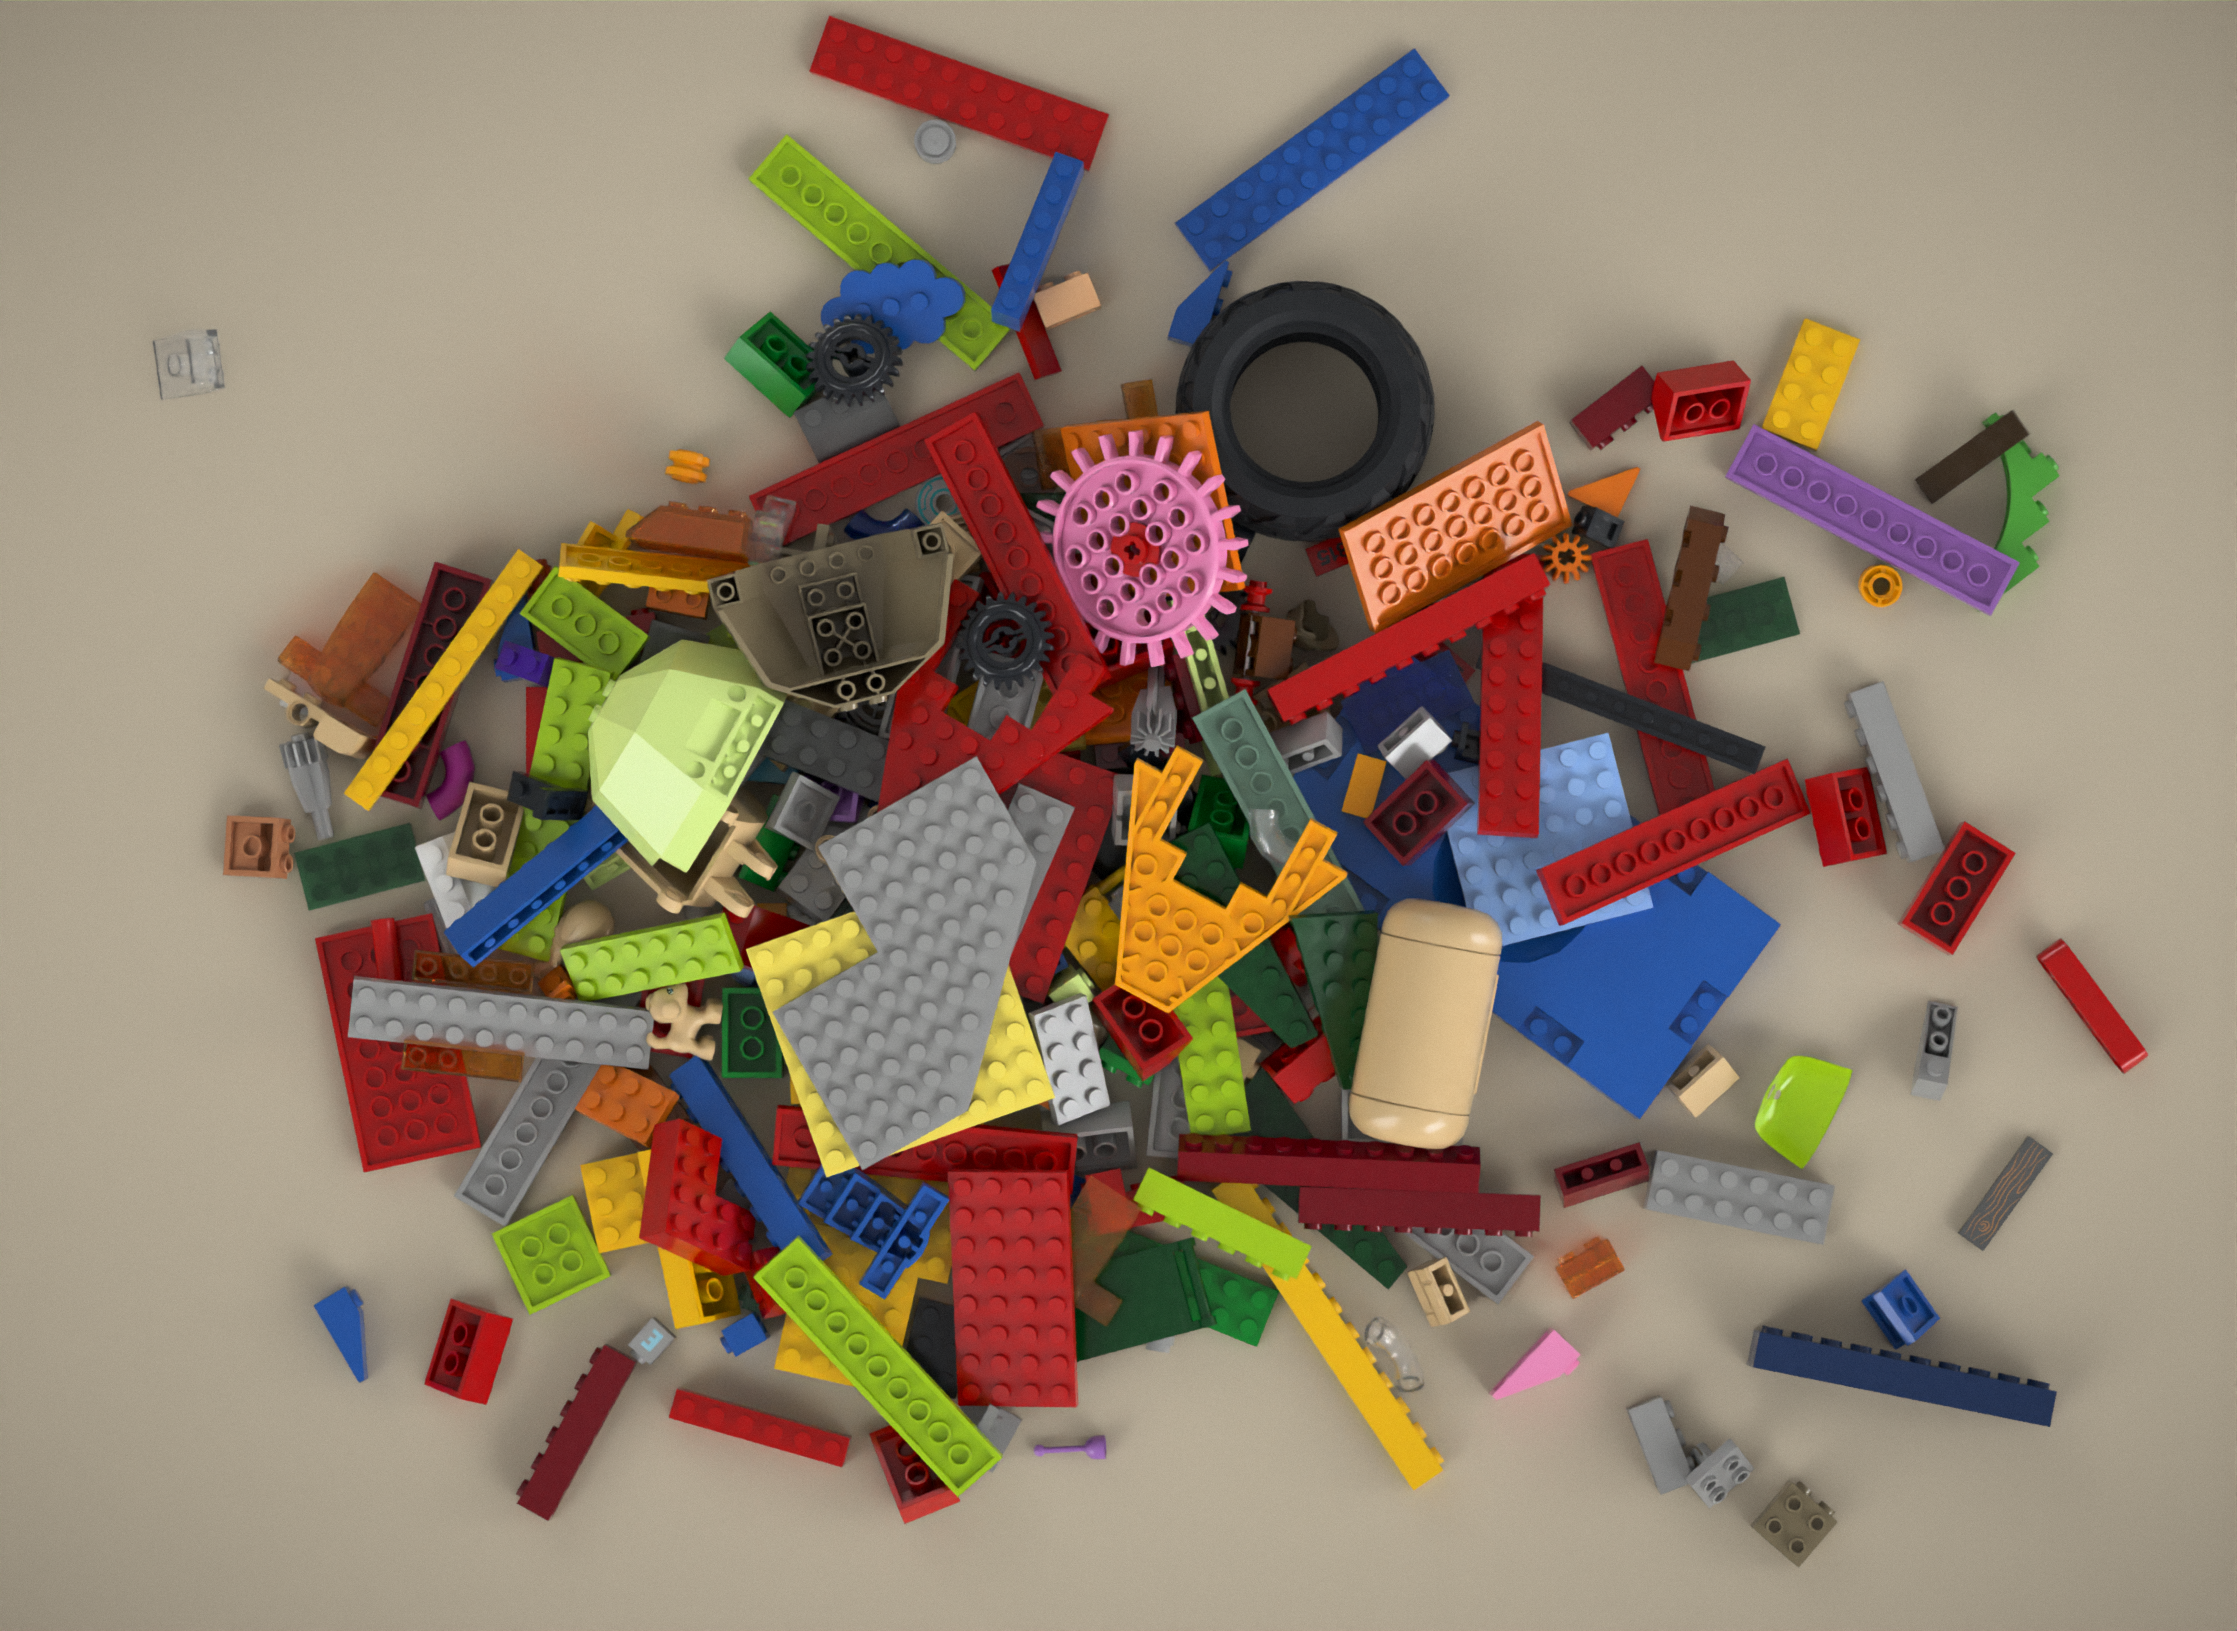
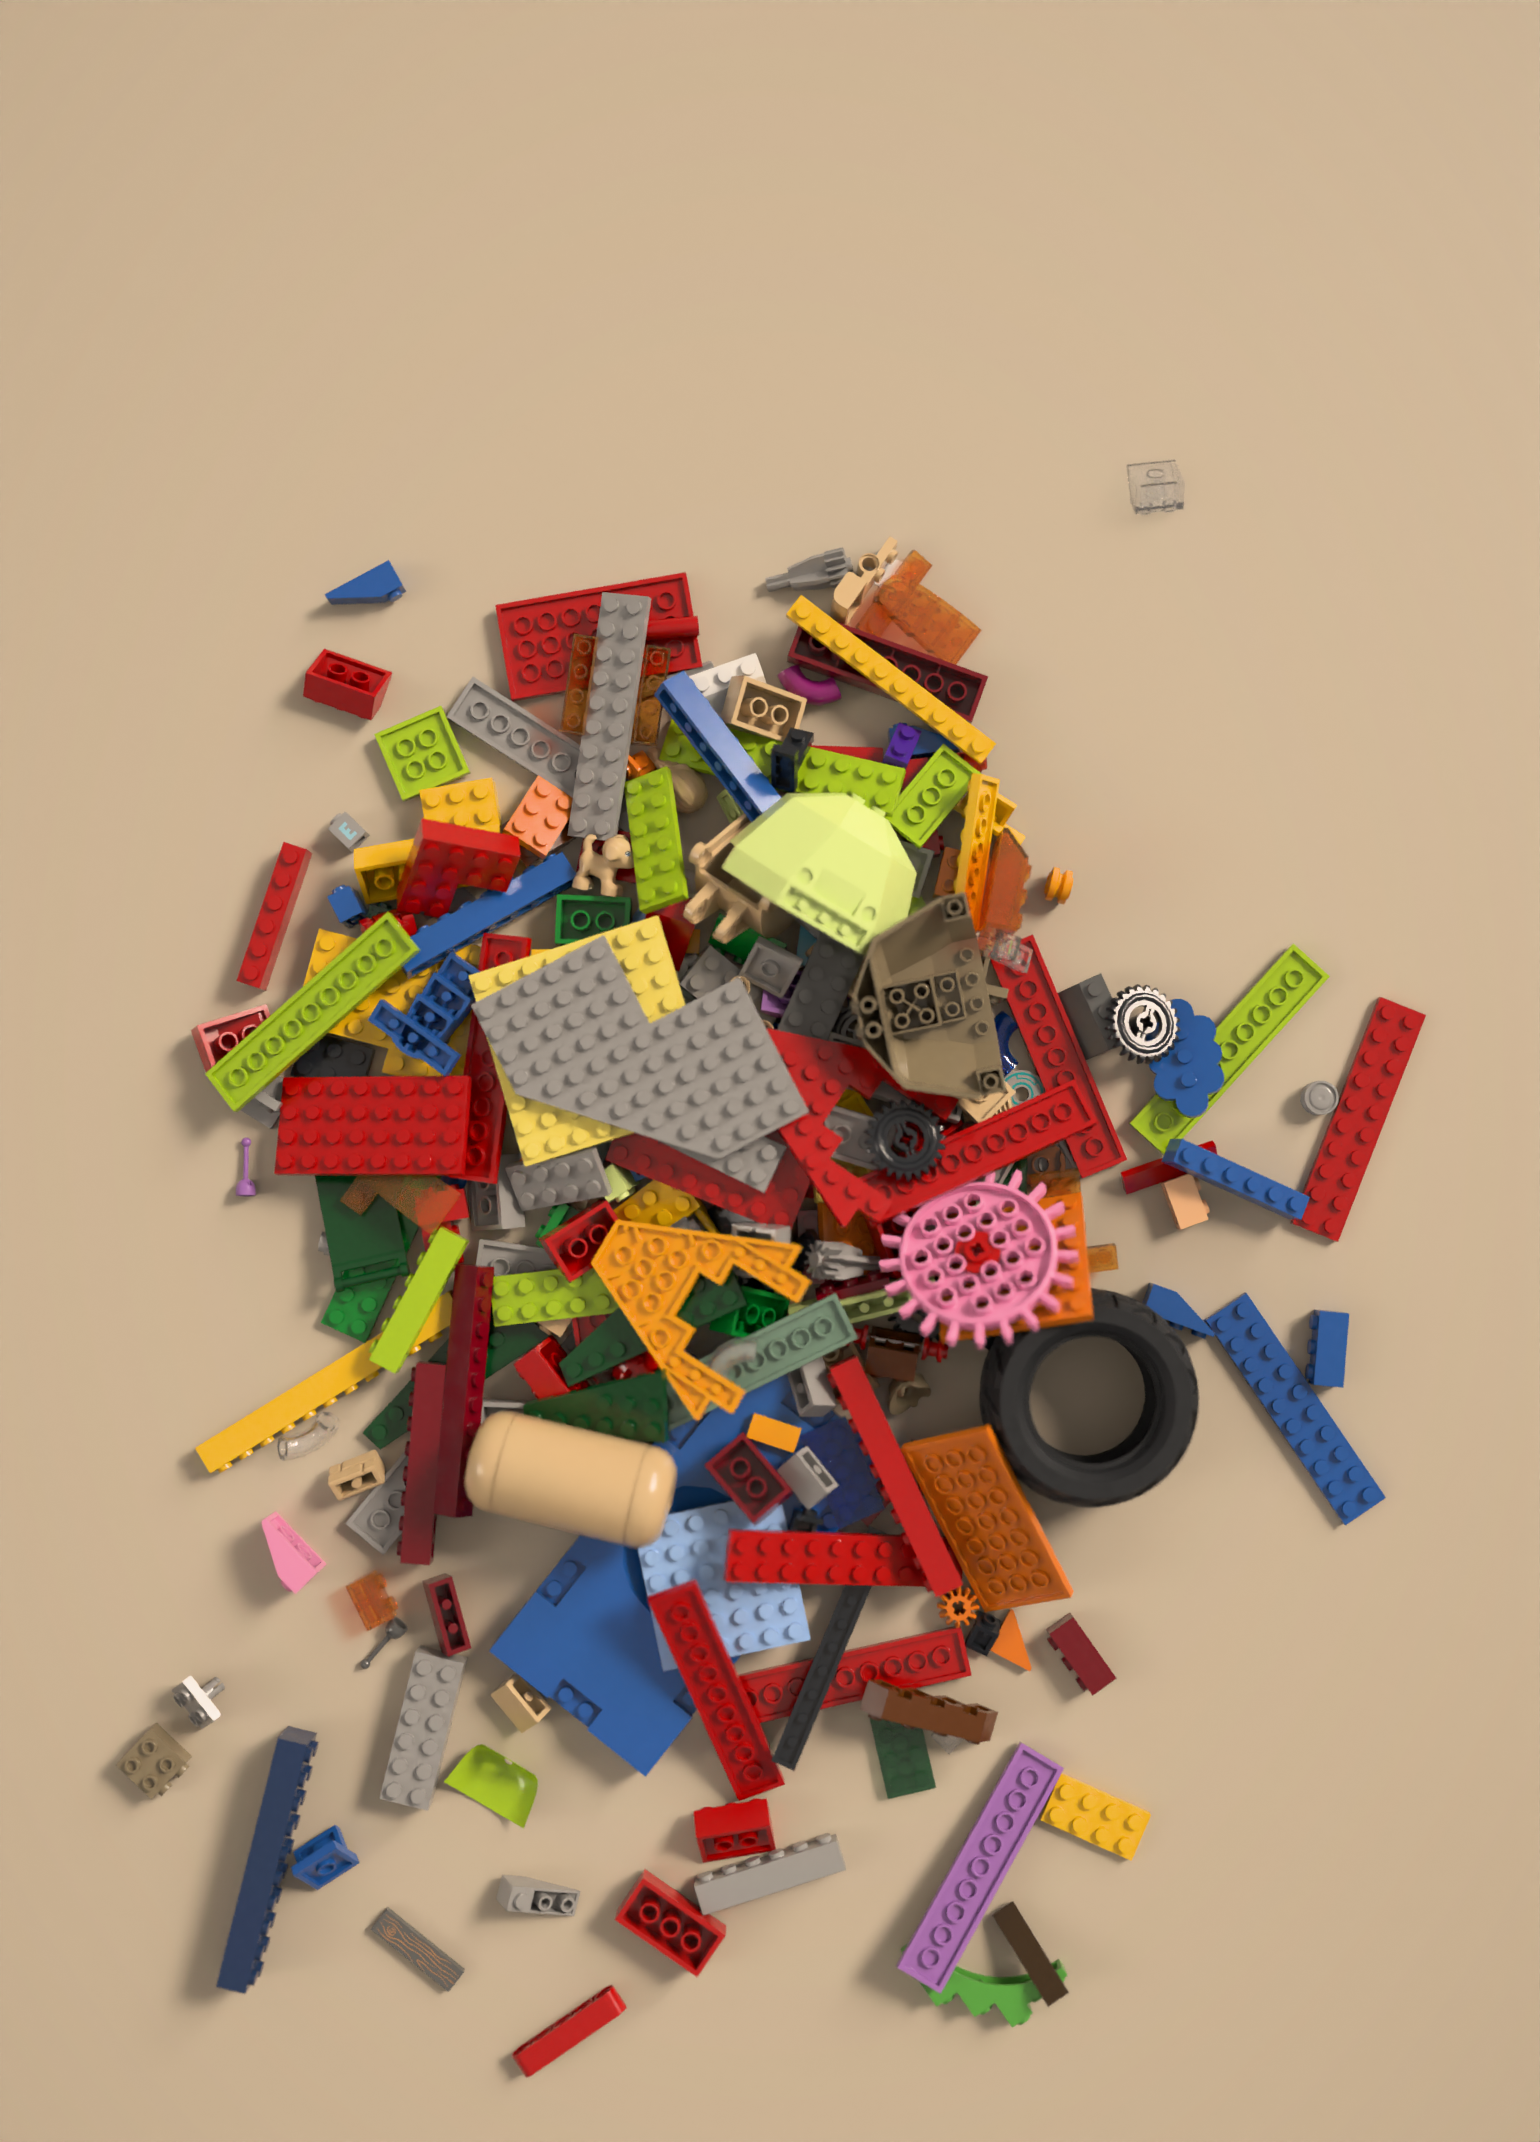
camera: 90 degrees right, 0 degrees up
(258, 847) = (761, 529): nougat plate -> none
(359, 866) = (742, 609): clear green plate -> none
(576, 1432) = (277, 768): dark red brick -> none
(774, 363) = (1141, 959): green slope -> none
(1237, 123) = (1327, 1348): none -> blue brick
(1327, 556) = (967, 1409): red tile -> none
(1624, 1239) = (394, 1629): none -> dark grey hinge
(1661, 1443) = (224, 1653): light grey brick -> none
(1699, 400) = (1085, 1726): red slope -> none
(1893, 590) = (921, 1879): light orange wheel -> none

